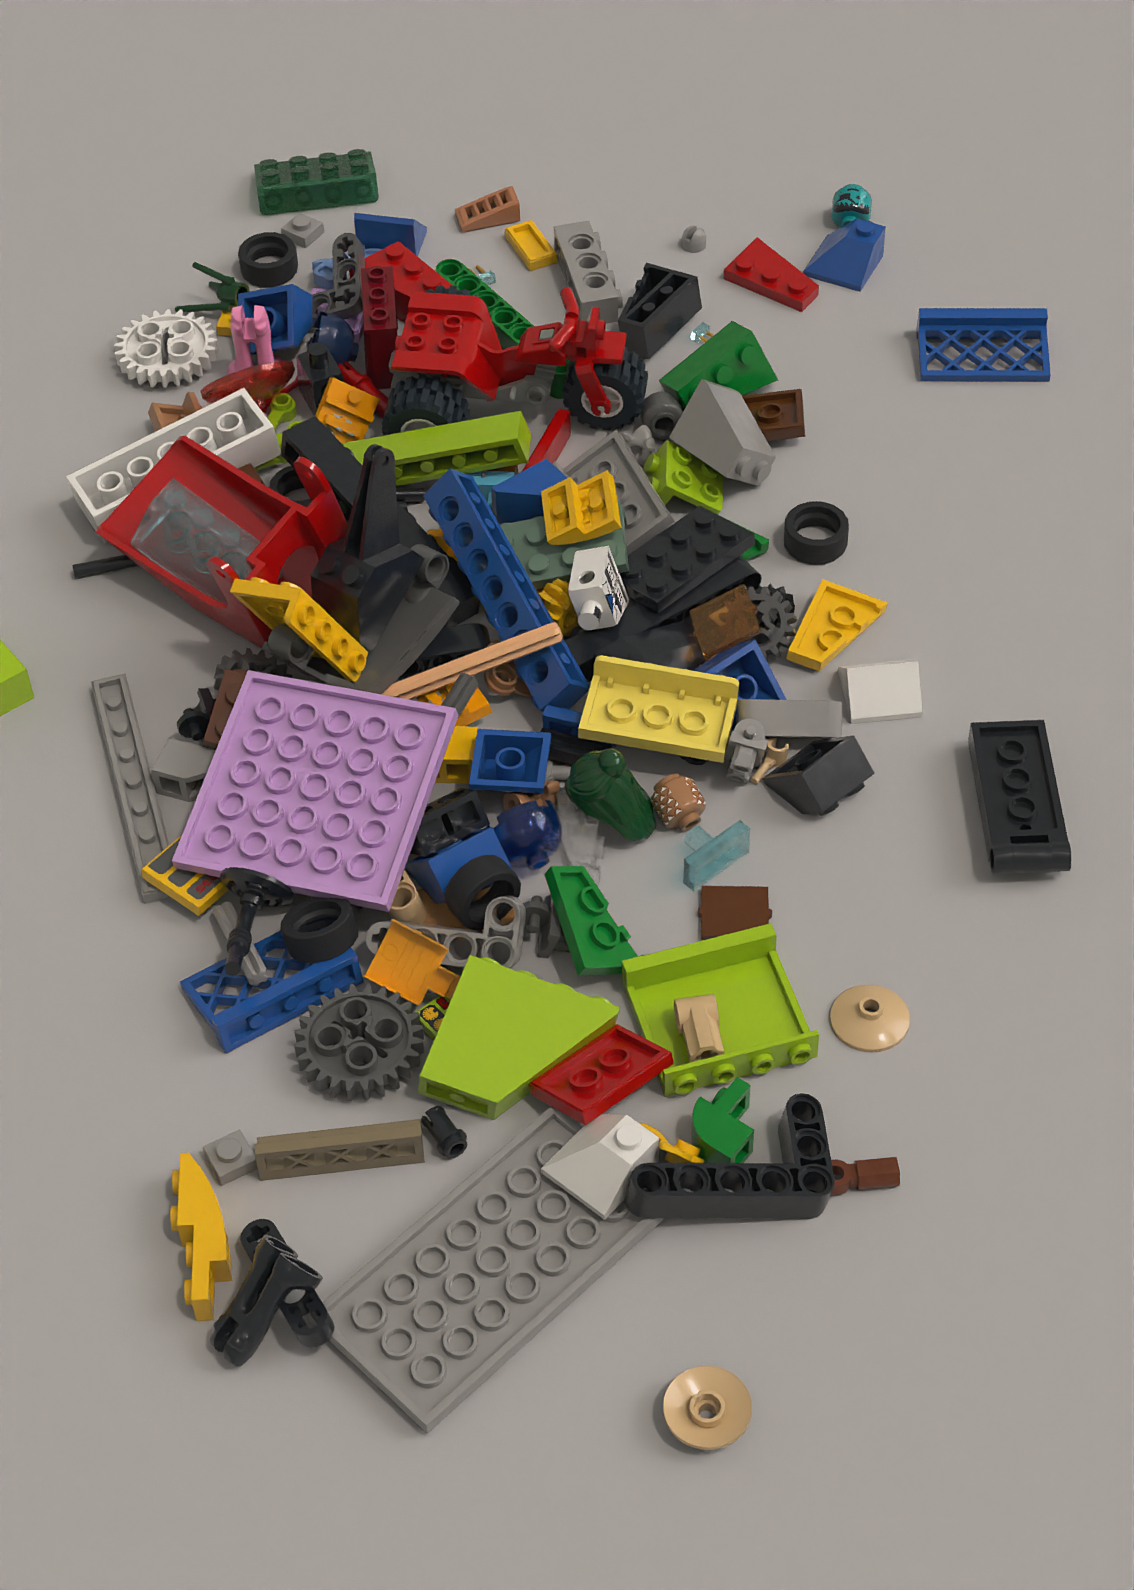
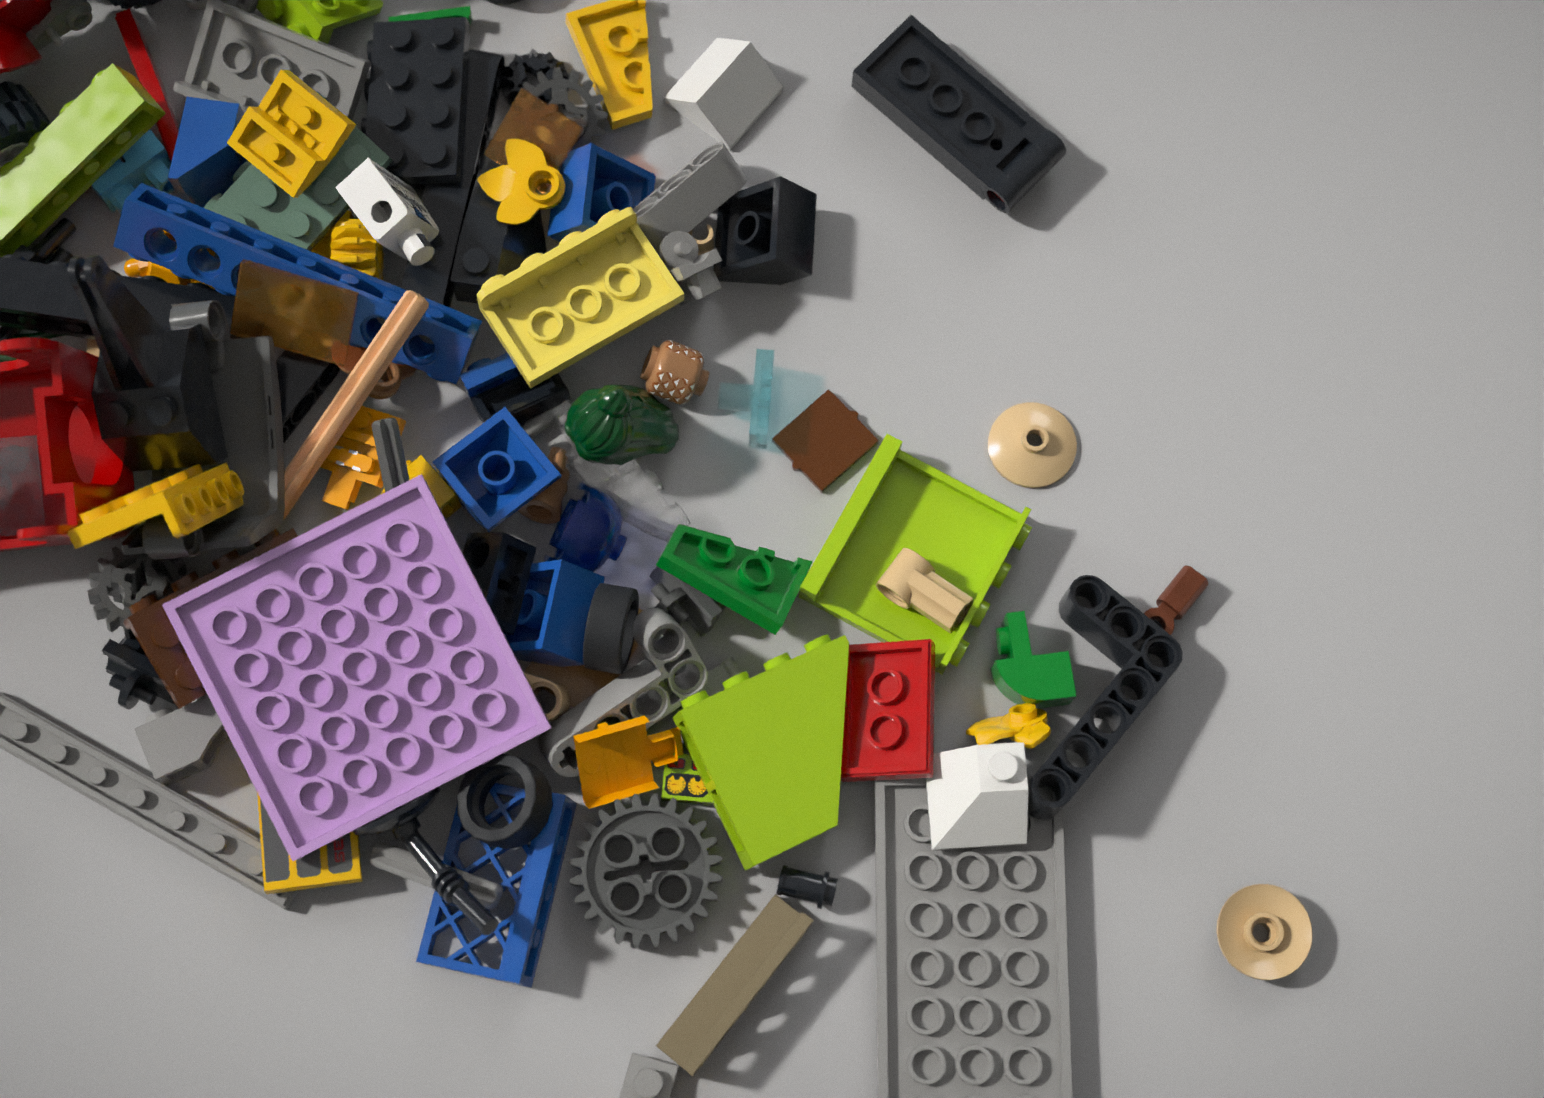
camera: 50 degrees left, 25 degrees up
(485, 598) = (294, 311): none -> clear orange piece
(694, 639) = (517, 183): none -> yellow plate

